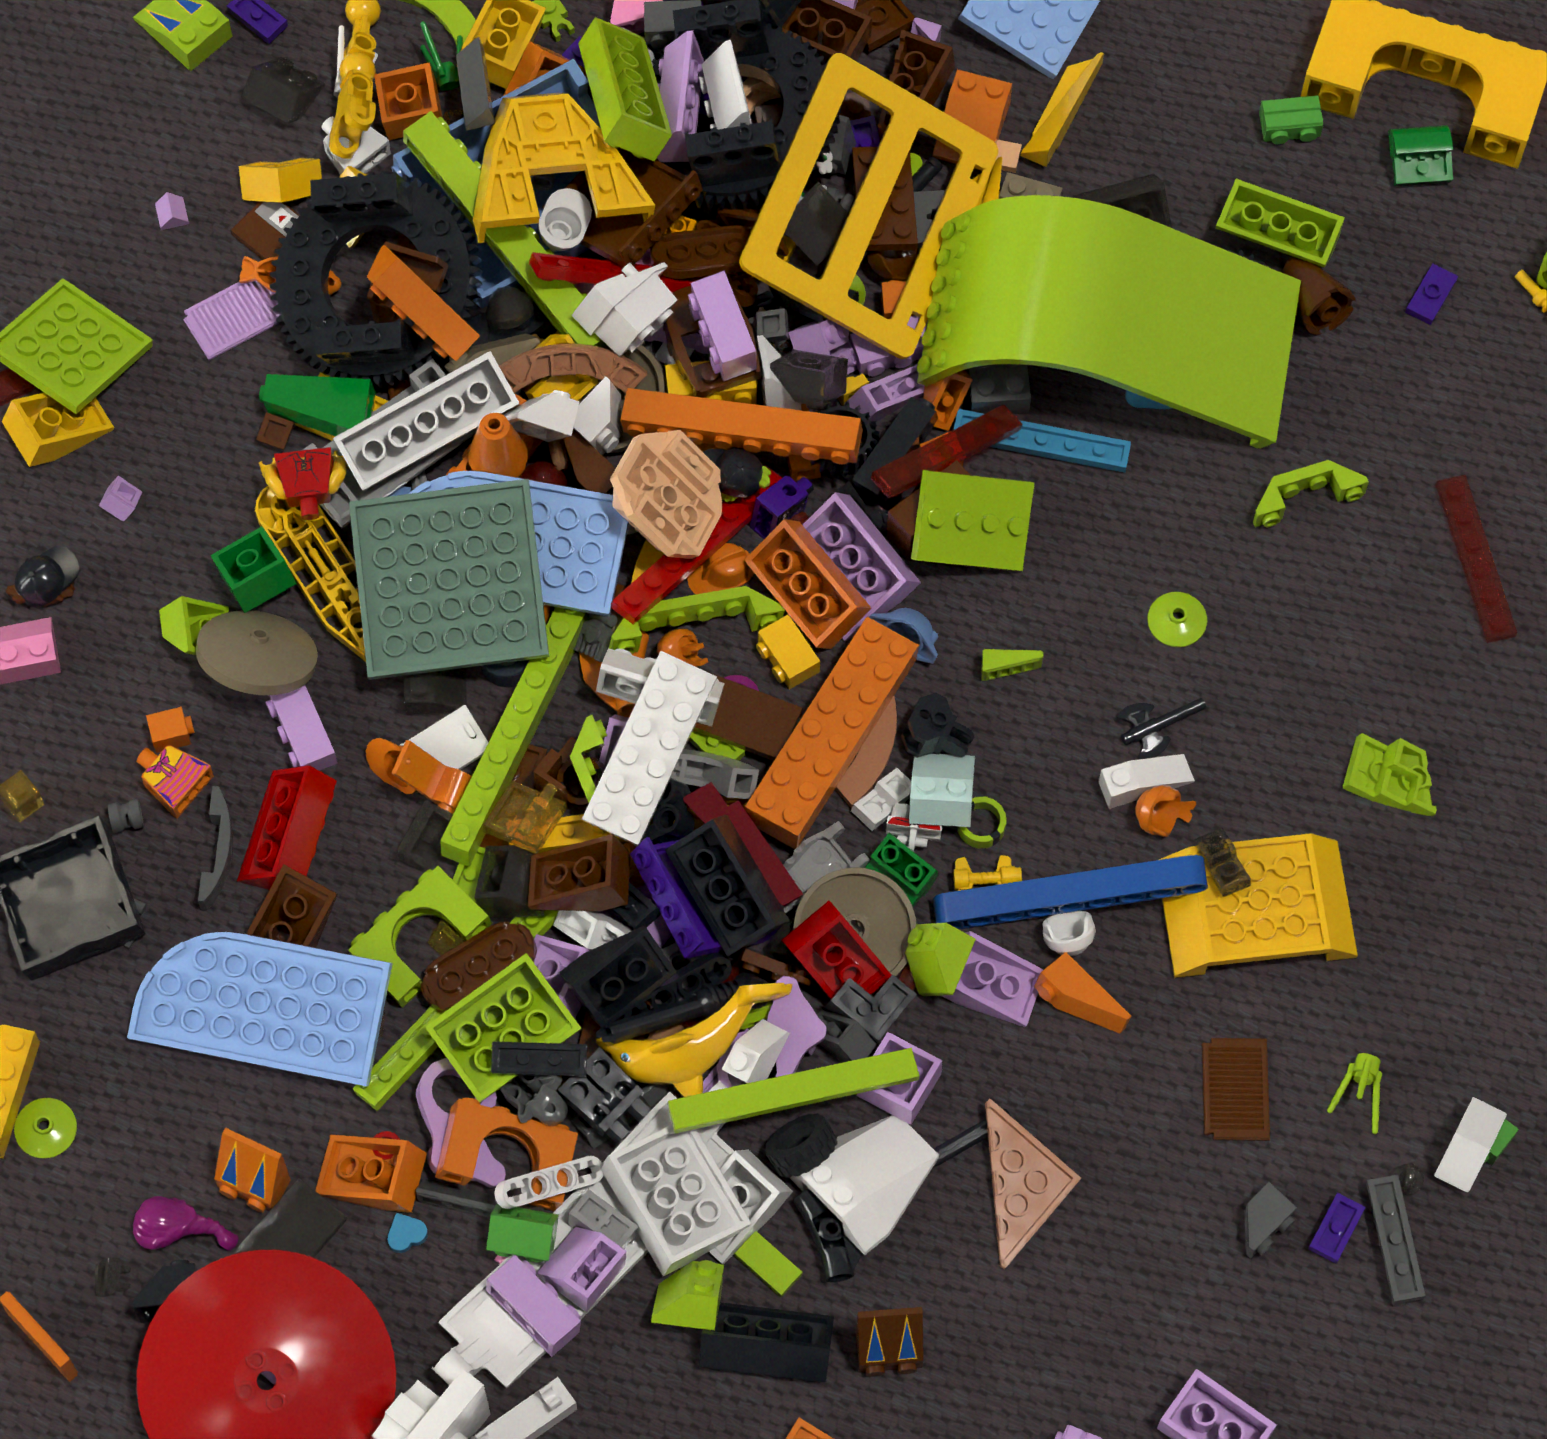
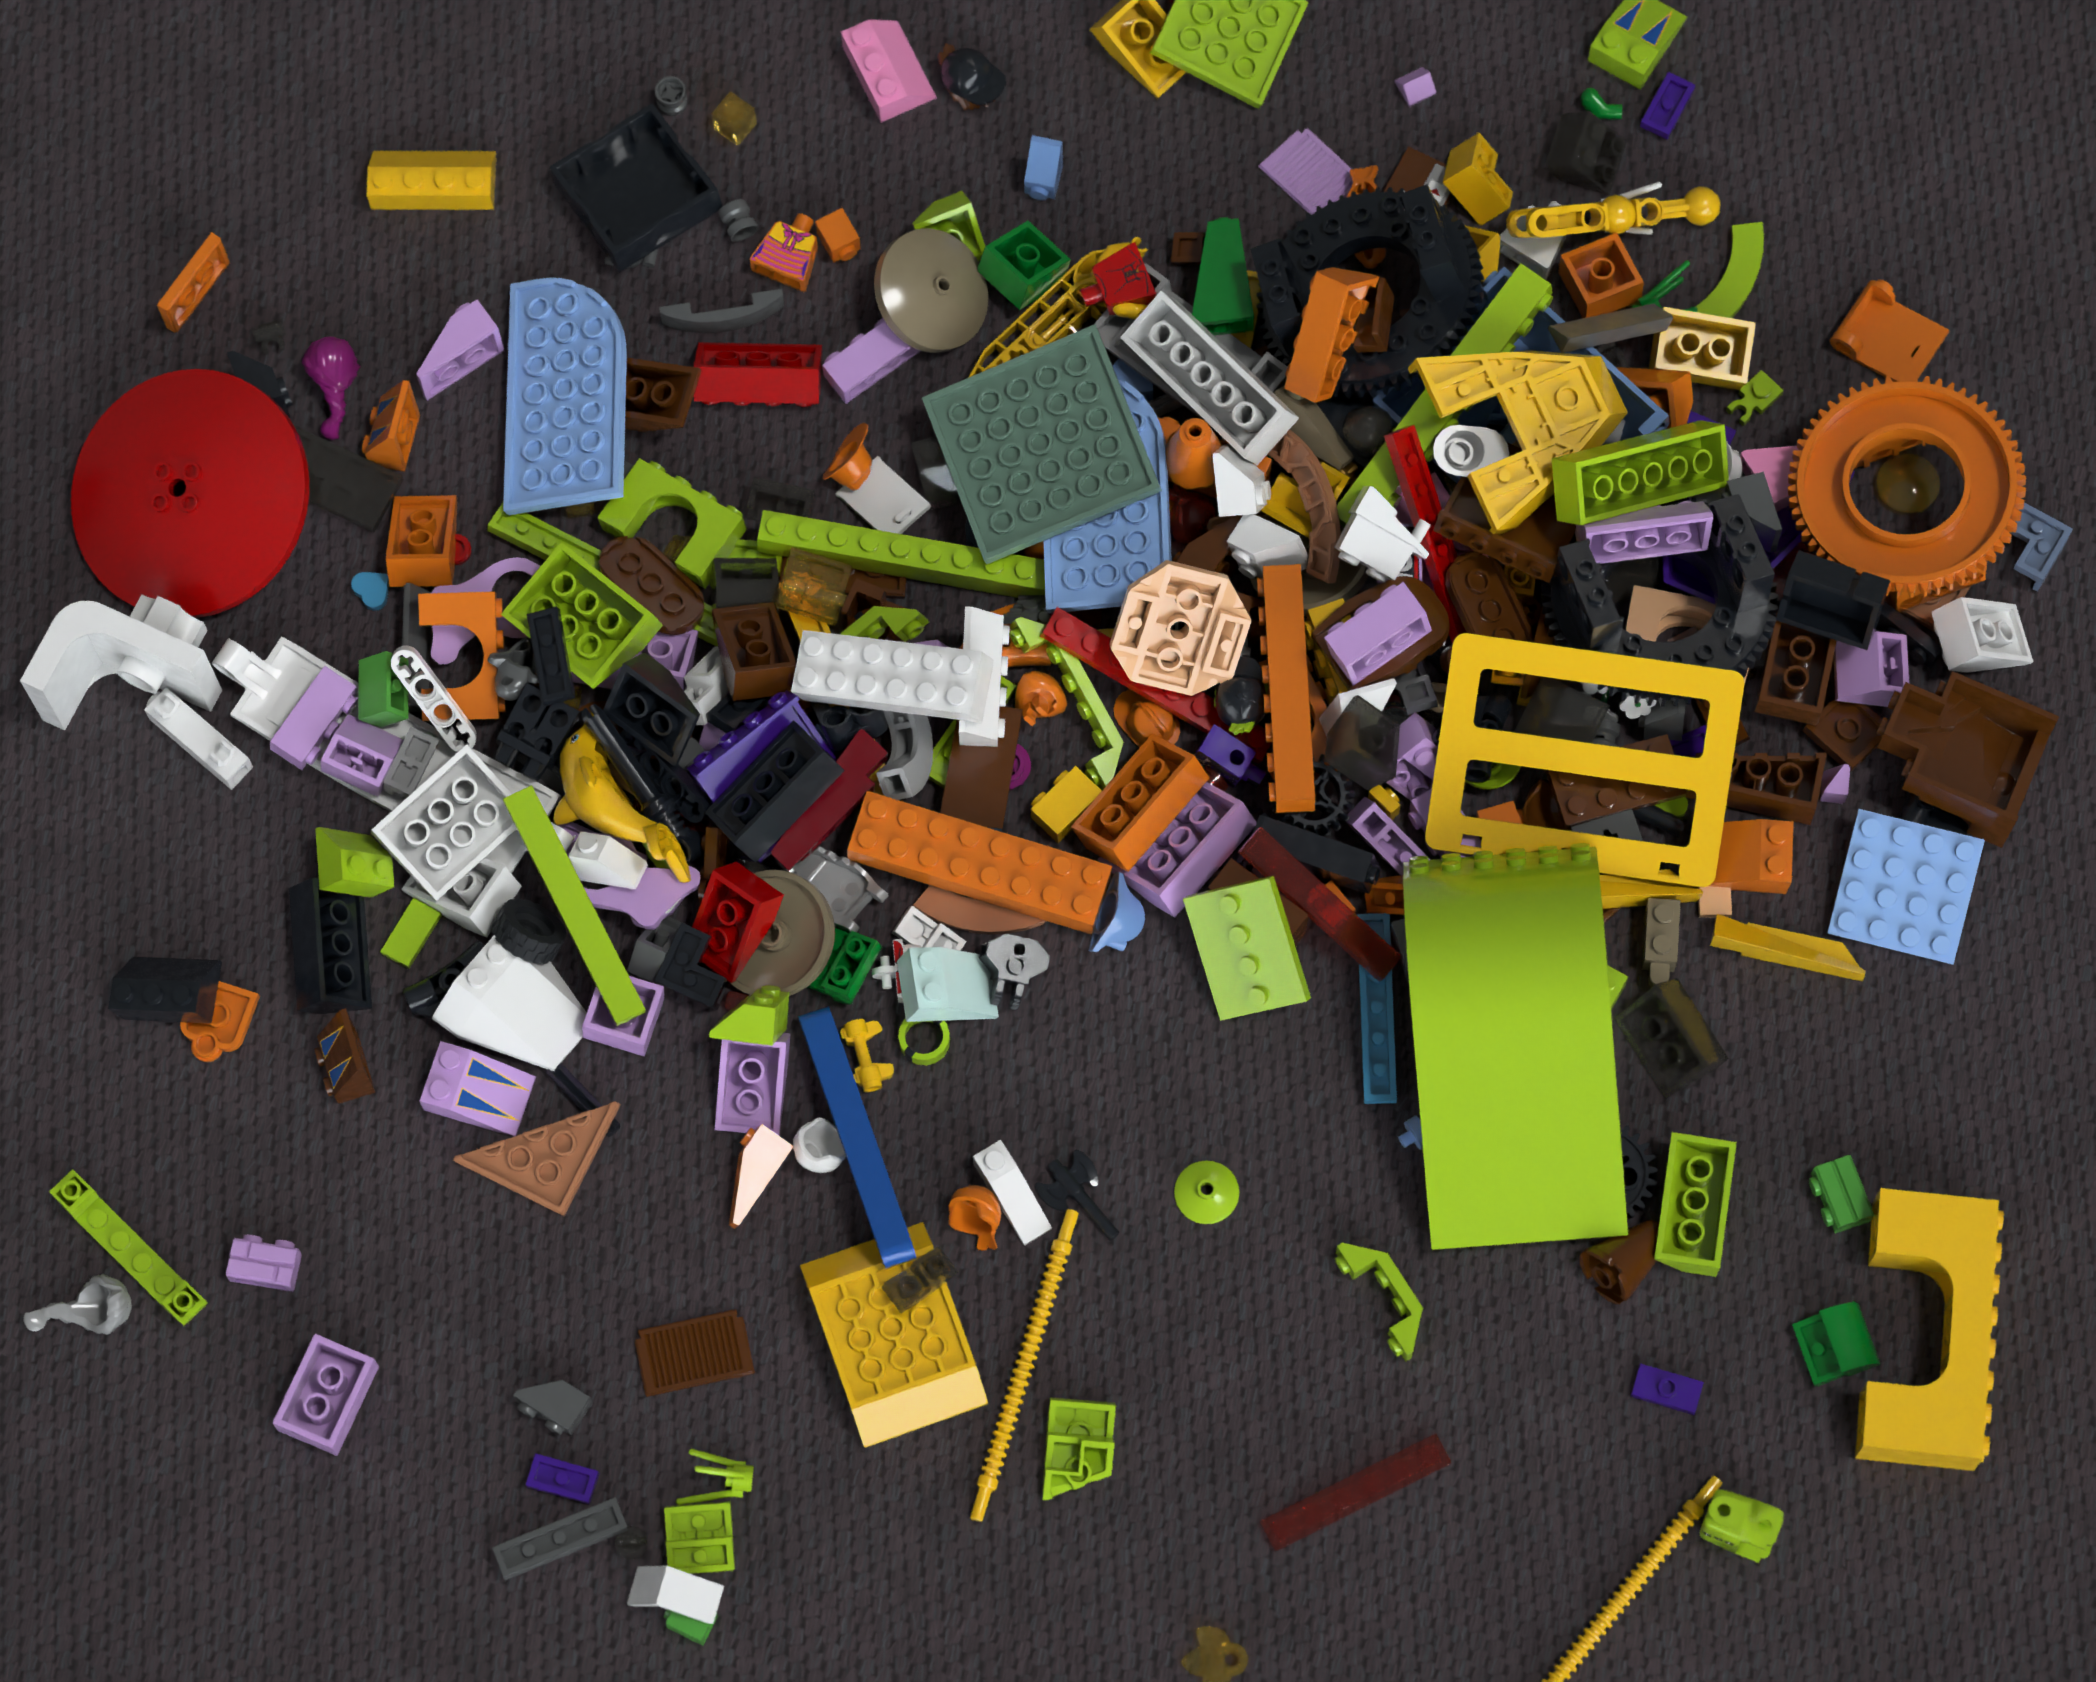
camera: 80 degrees right, 5 degrees up
(52, 1140) = (410, 250): lime dish -> none
(120, 498) = (1079, 124): lavender slope -> none
(160, 532) = (1043, 168): none -> medium blue slope
(176, 1080) = (461, 347): none -> lavender slope
(239, 72) = (1594, 103): none -> green arm
(431, 777) = (836, 484): orange door -> none
(725, 89) = (1657, 578): white slope -> none
(941, 1232) = (476, 1090): none -> lavender slope
(1002, 663) = (1104, 1017): lime slope -> none
(1164, 434) = (1413, 1133): none -> light blue tile
(1409, 857) = (987, 1482): none -> yellow hose
(1414, 1118) = (700, 1537): none -> lime slope

